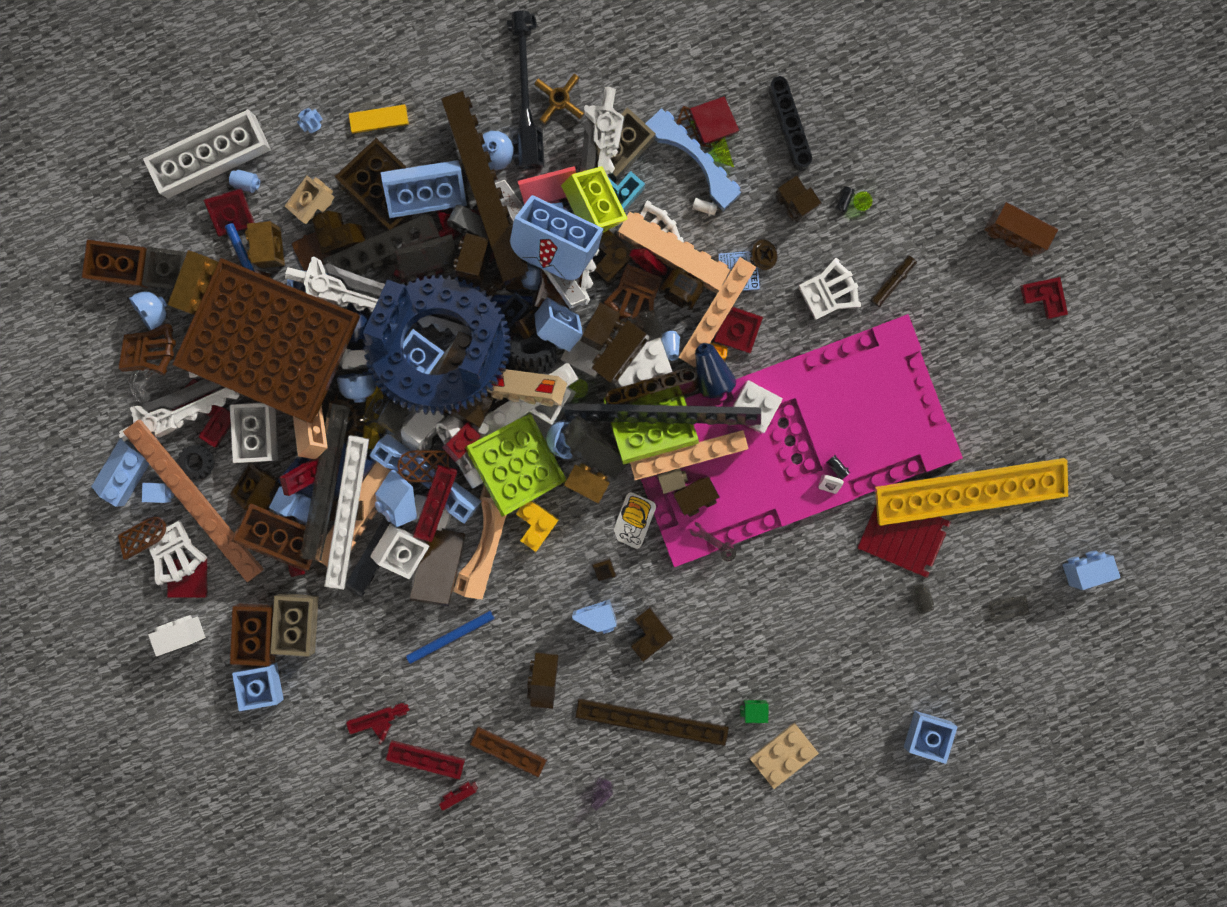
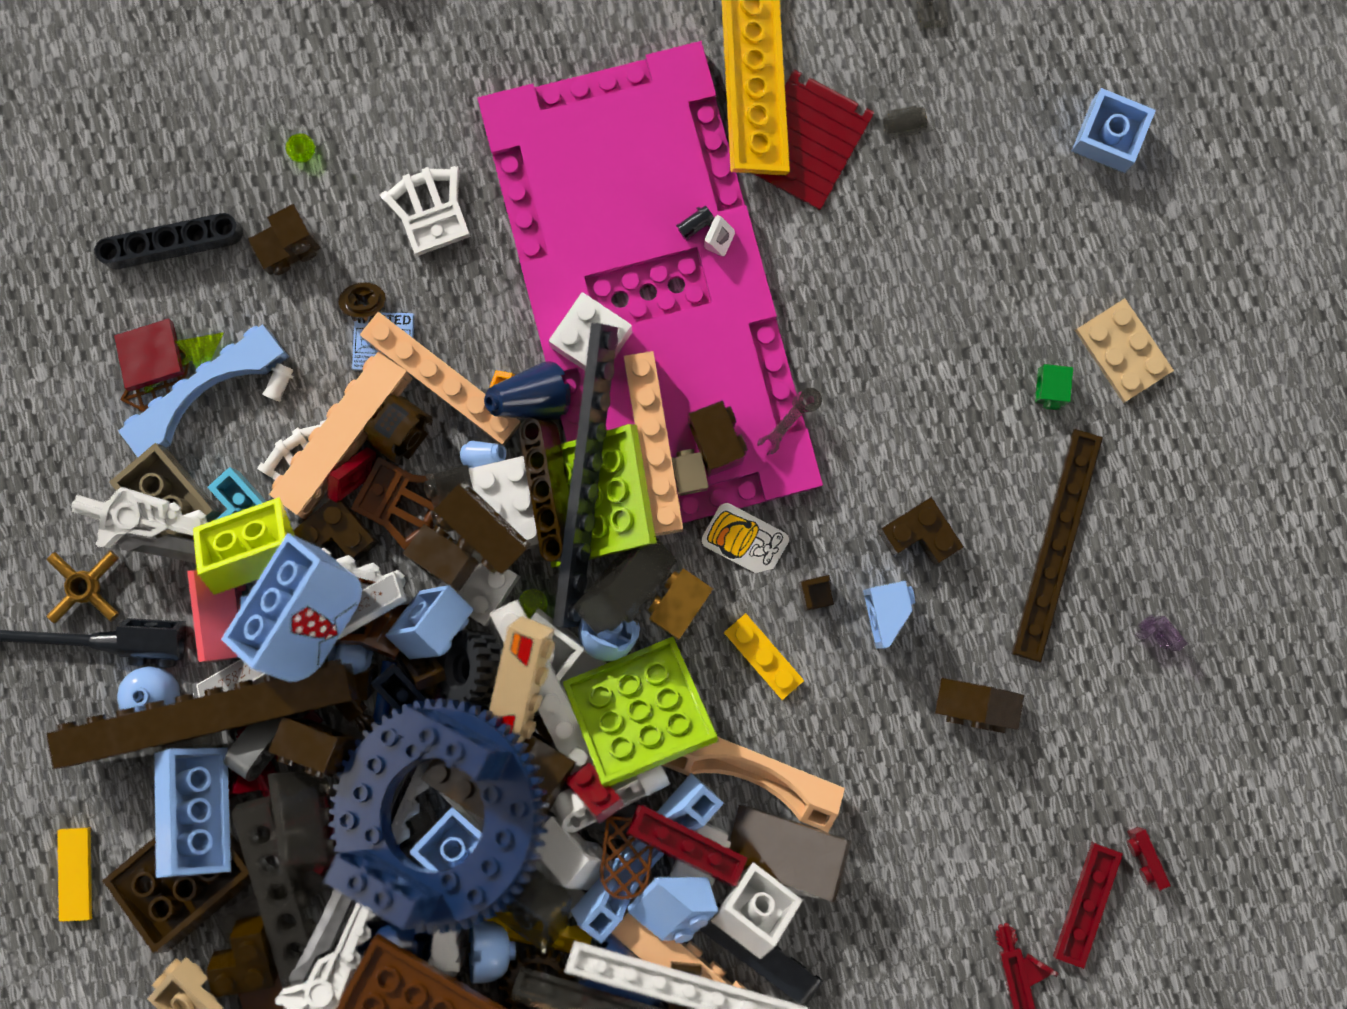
camera: 90 degrees left, 5 degrees down
(309, 120) = (61, 985): light blue gear -> none
(450, 637) = (899, 846): blue piece -> none
(508, 752) = (1085, 772): reddish brown tile -> none
(541, 524) = (738, 683): yellow brick -> none
(560, 539) = (763, 656): none -> yellow plate
(739, 330) = (472, 349): dark red plate -> none
(846, 196) = (292, 172): black pin -> none
(895, 279) = (417, 105): dark brown pin -> none

